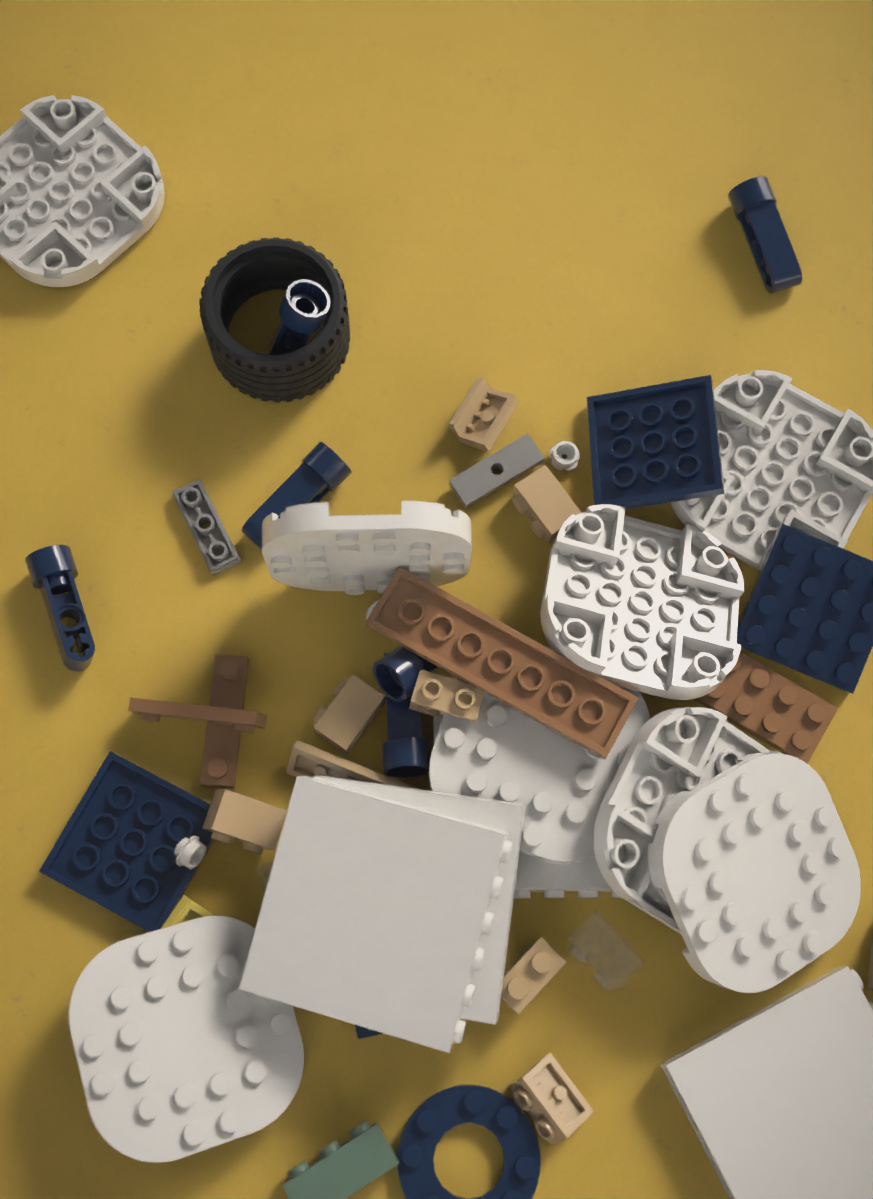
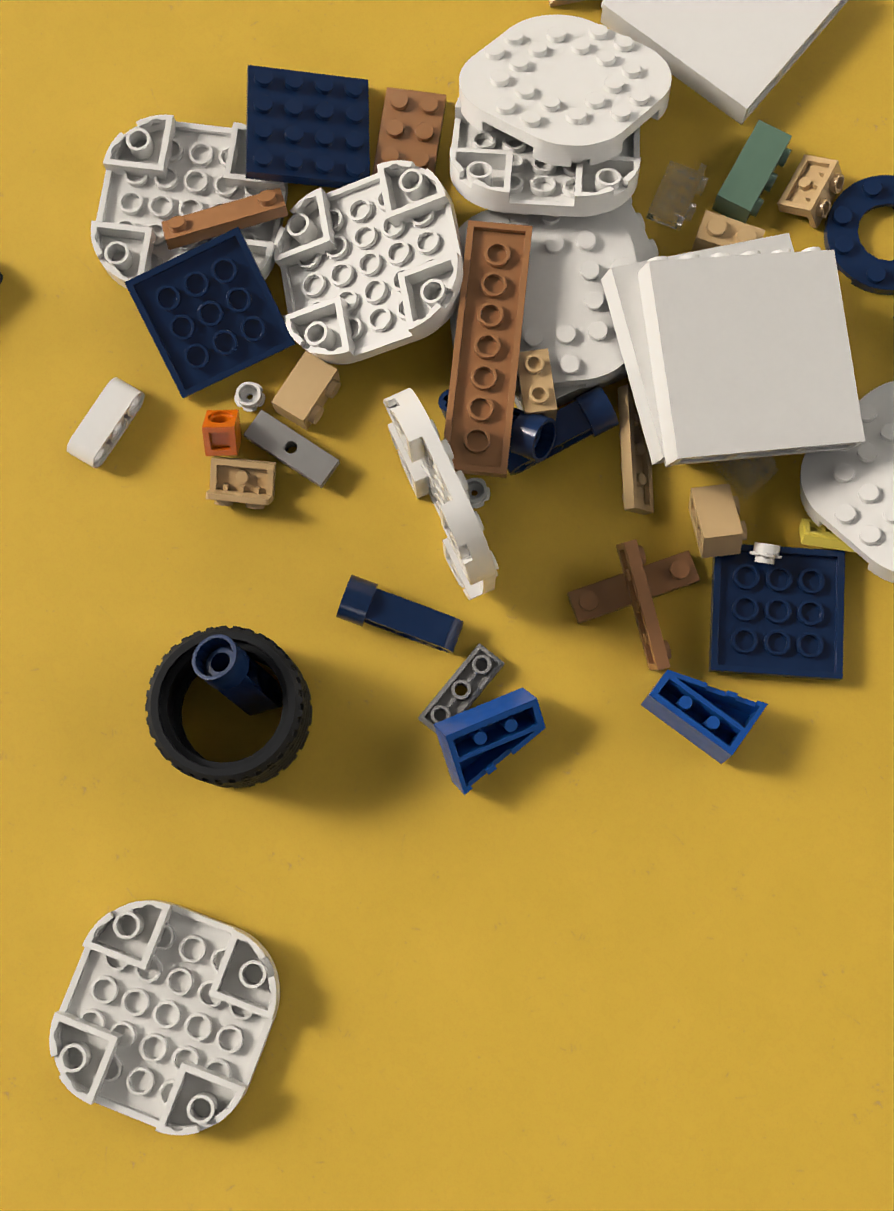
camera: 105 degrees left, 5 degrees up
(54, 572) = (574, 805): dark blue beam -> none
(71, 724) = (702, 714): none -> blue wedge
(151, 525) = (487, 734): none -> blue wedge
(348, 714) = (579, 478): tan brick -> none
(536, 414) = (222, 432): none -> orange brick
(591, 326) = (105, 422): none -> white beam
(594, 1043) = (753, 173): none -> sand green brick
(747, 494) = (222, 218): none -> medium nougat plate

